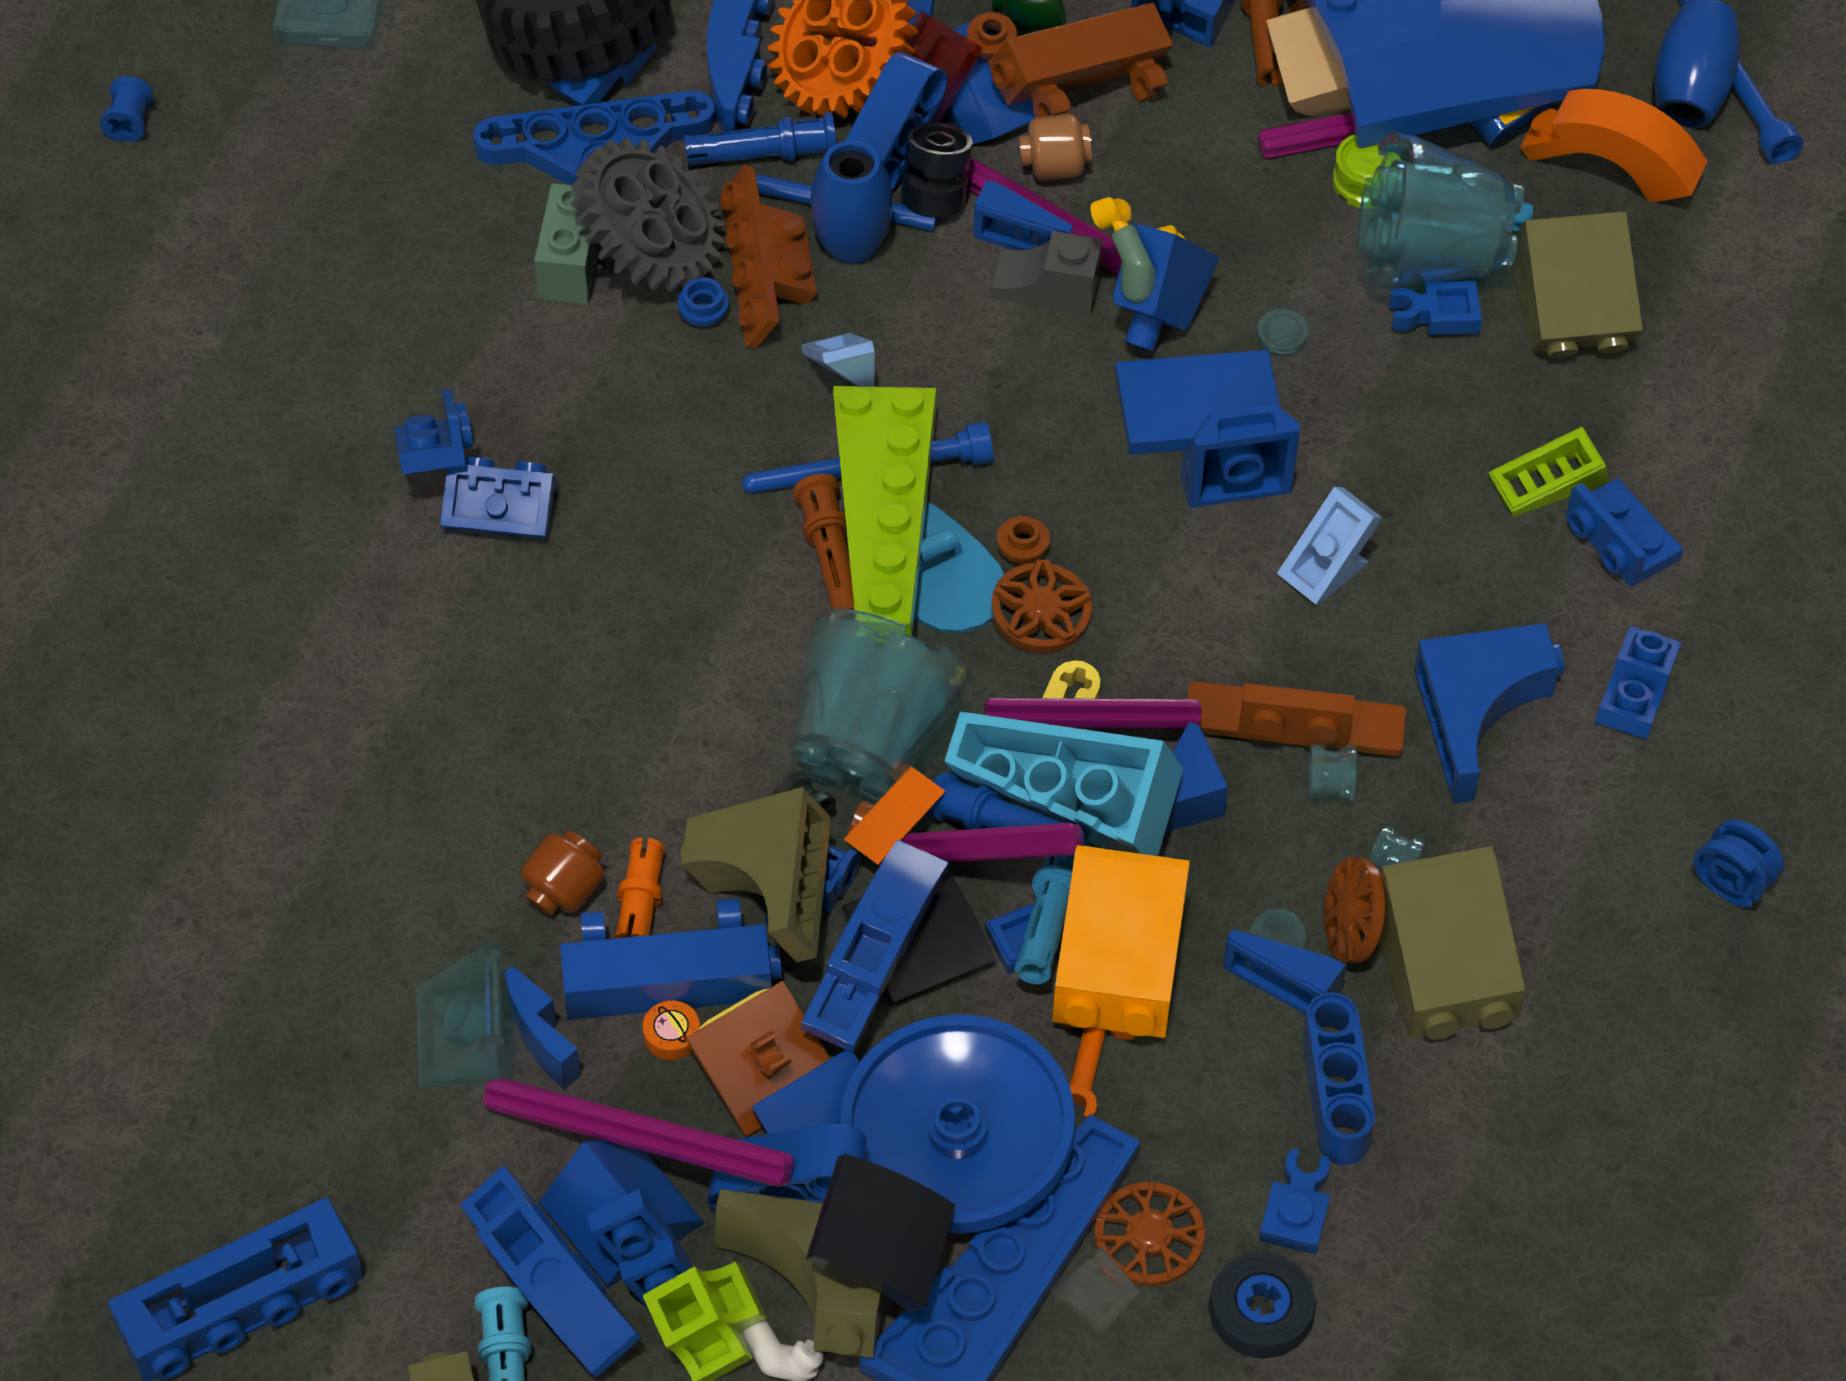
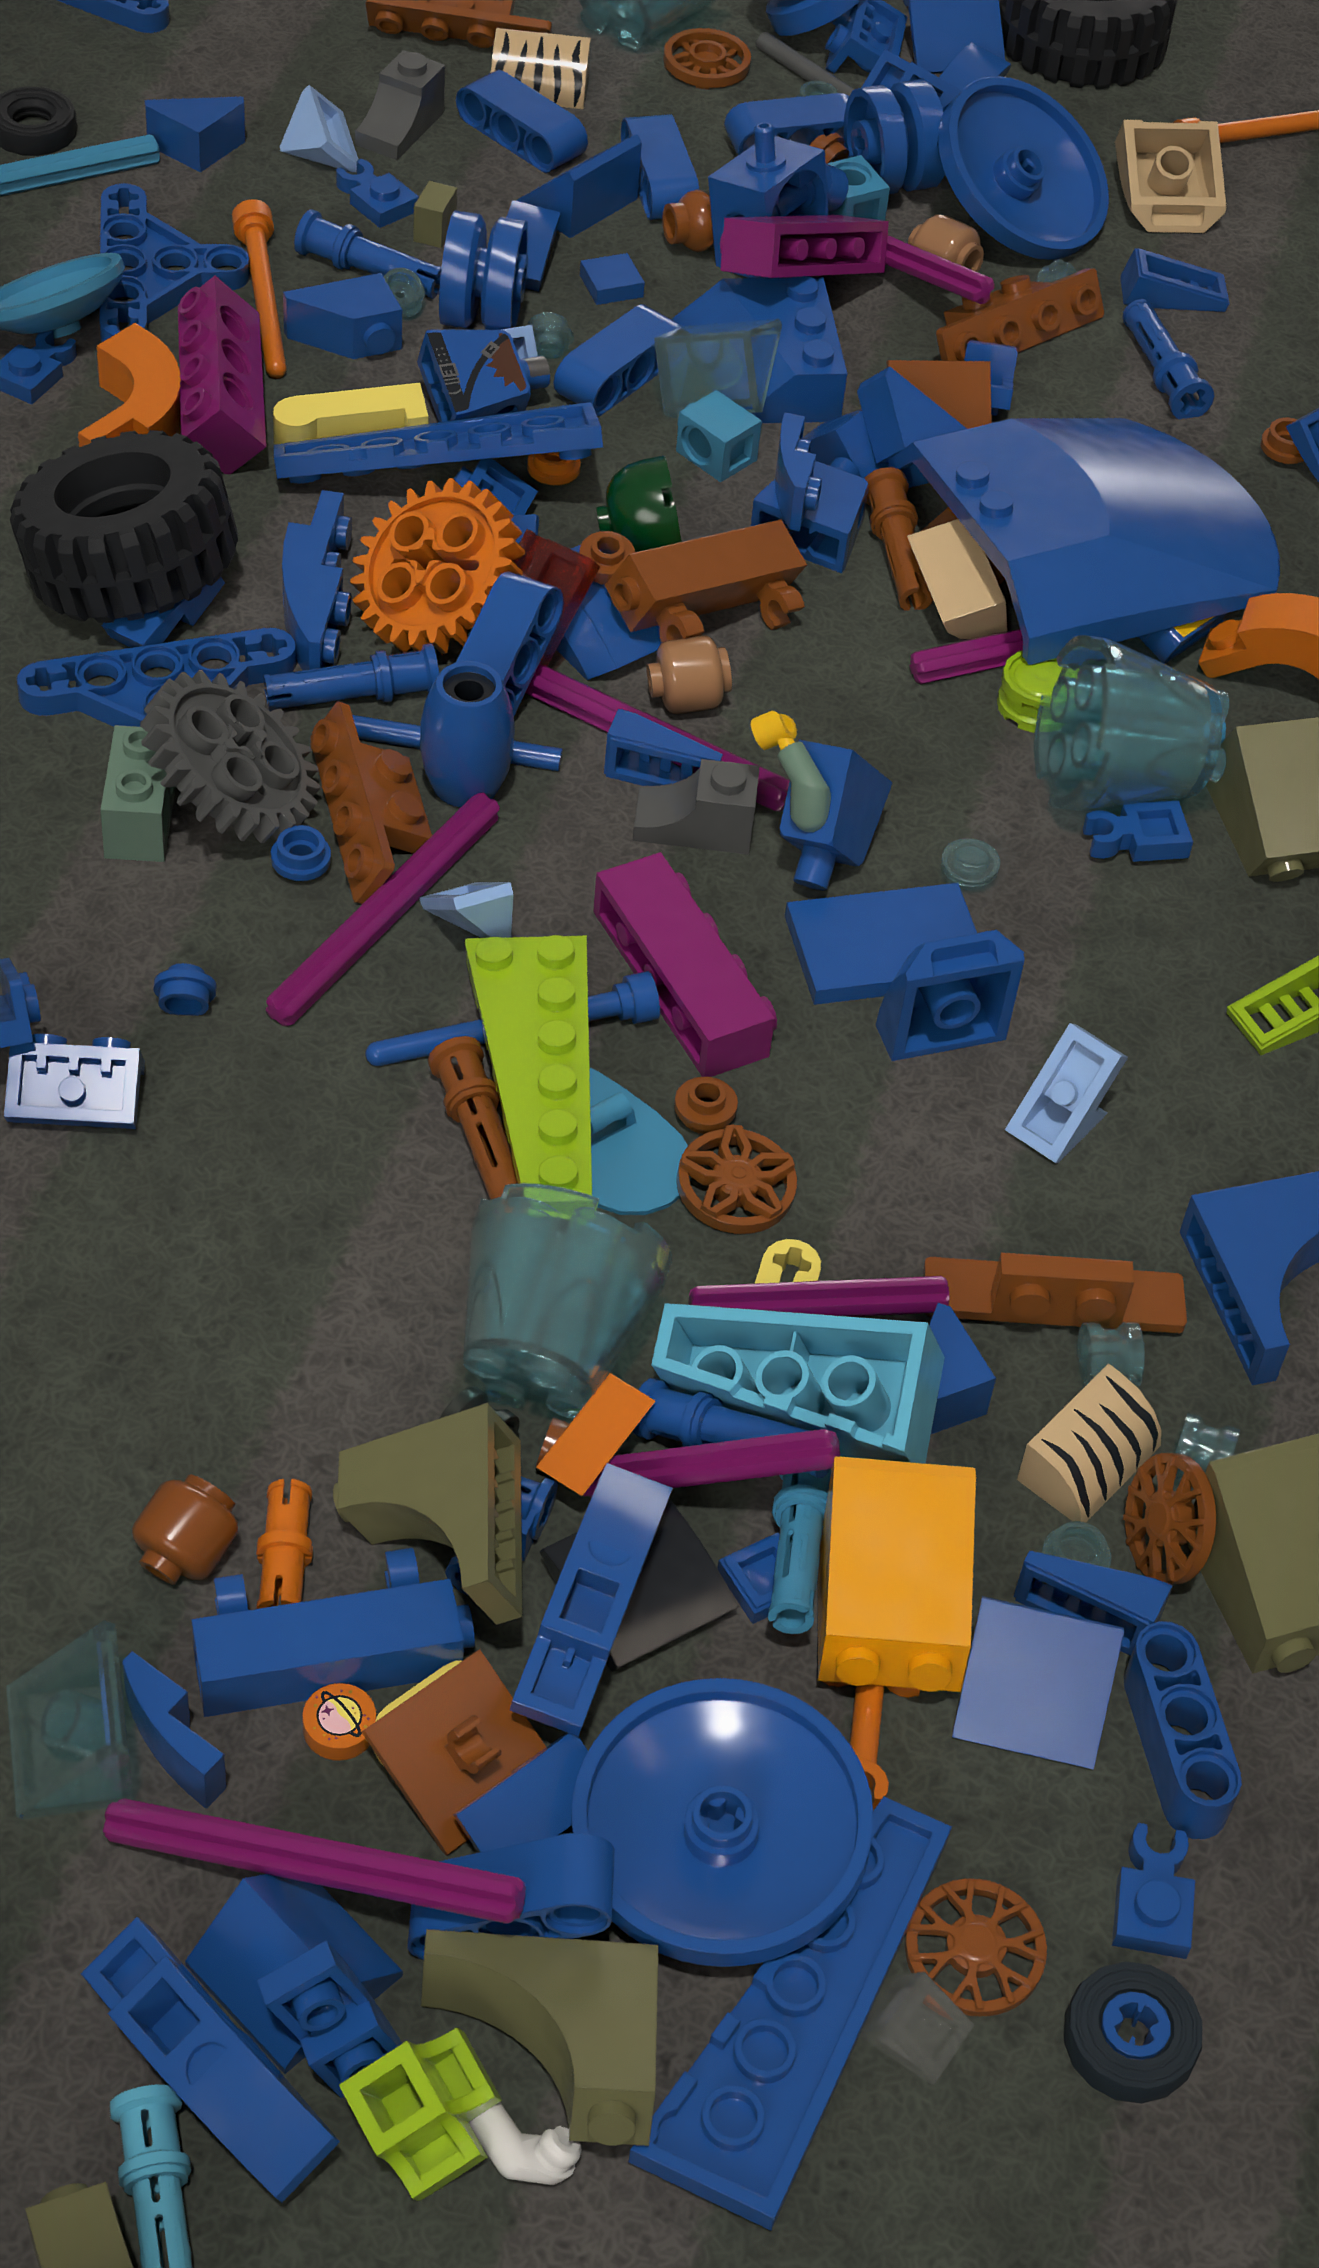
camera: 10 degrees left, 5 degrees down
(595, 421) = (184, 990): none -> blue plate
(769, 353) = (381, 910): none -> magenta axle
(881, 1231) = (649, 1975): black slope -> none
(936, 169) = (559, 698): black wheel -> none
(1024, 426) = (697, 979): none -> magenta brick
(1225, 1034) = (1038, 1682): none -> piece
(1303, 846) = (1091, 1446): none -> tan brick

